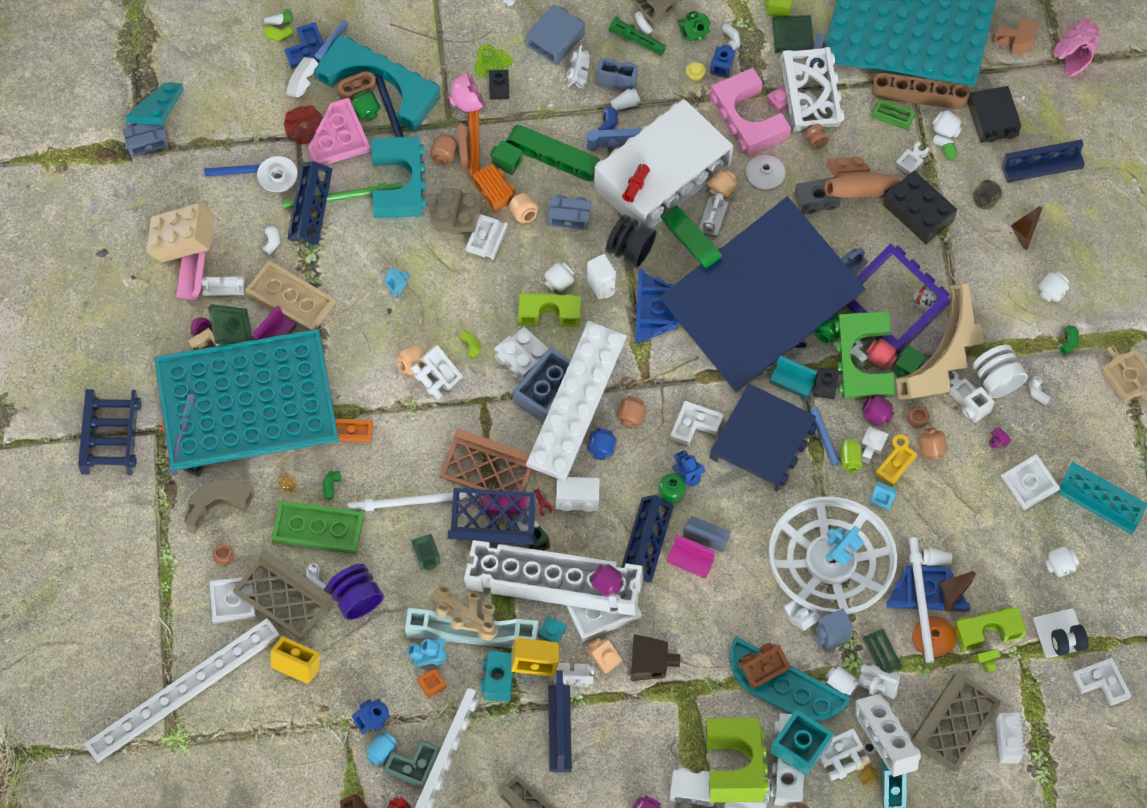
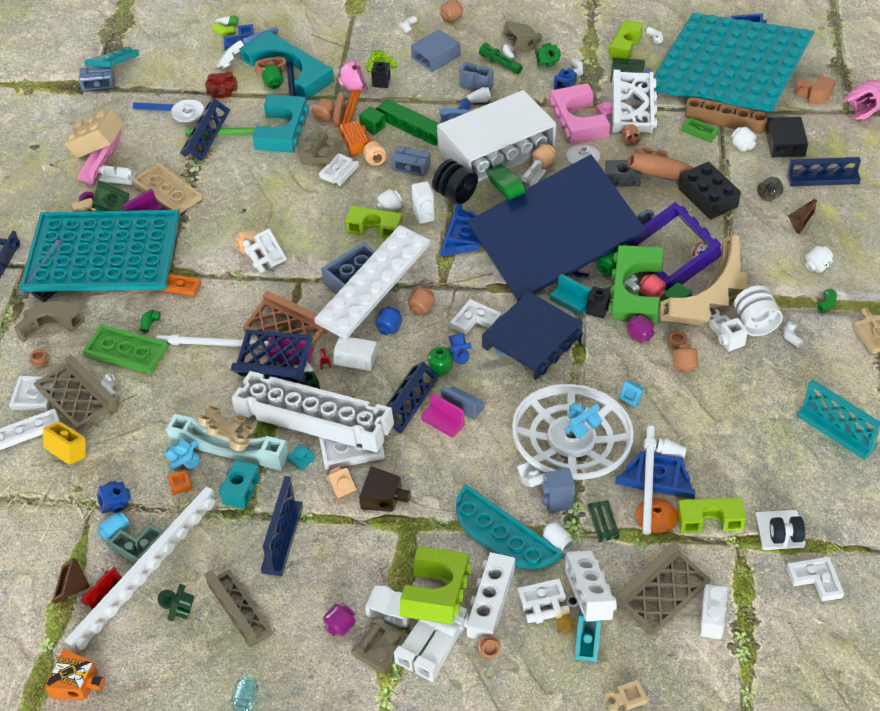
camera: 15 degrees right, 15 degrees down
(273, 238) = (169, 152): white arm -> none
(287, 482) = (113, 314): clear yellow plate -> none
(338, 135) = (244, 91): bright pink plate -> none
(355, 591) = (135, 397): dark purple wheel -> none
(396, 281) = (255, 189): medium azure tile -> none
(426, 552) = (209, 379): clear green brick -> none
(473, 344) = (303, 238): lime arm -> none
(520, 353) = (334, 247): white plate -> none
(537, 657) = (271, 466): yellow brick -> none
(575, 74) = (450, 70): white hinge -> none
(579, 676) = (313, 496): white hinge -> none
(607, 580) = (354, 411): magenta head -> none
(635, 183) = (466, 135): red pin -> none
(695, 71) = (541, 85): light yellow plate -> none
(764, 664) = (485, 509): dark orange bracket -> none
(801, 742) = (502, 576): teal brick -> none
(825, 437) = (589, 345): medium blue bar -> none
(851, 455) = (608, 359): lime brick -> none
(873, 443) = (630, 353): white plate -> none
(879, 681) = (593, 540): white hips -> none
(897, 461) = (650, 370): yellow hinge -> none
(911, 160) = (713, 157): white plate -> none
(948, 146) = (742, 154): arm -> none
(954, 588) = (685, 473): reddish brown slope -> none
(986, 659) = (704, 539): lime tile -> none
(1000, 436) = (749, 363): magenta tile -> none
(1030, 482) = (772, 402): white tile -> none
(1062, 561) = (792, 469): white head -> none

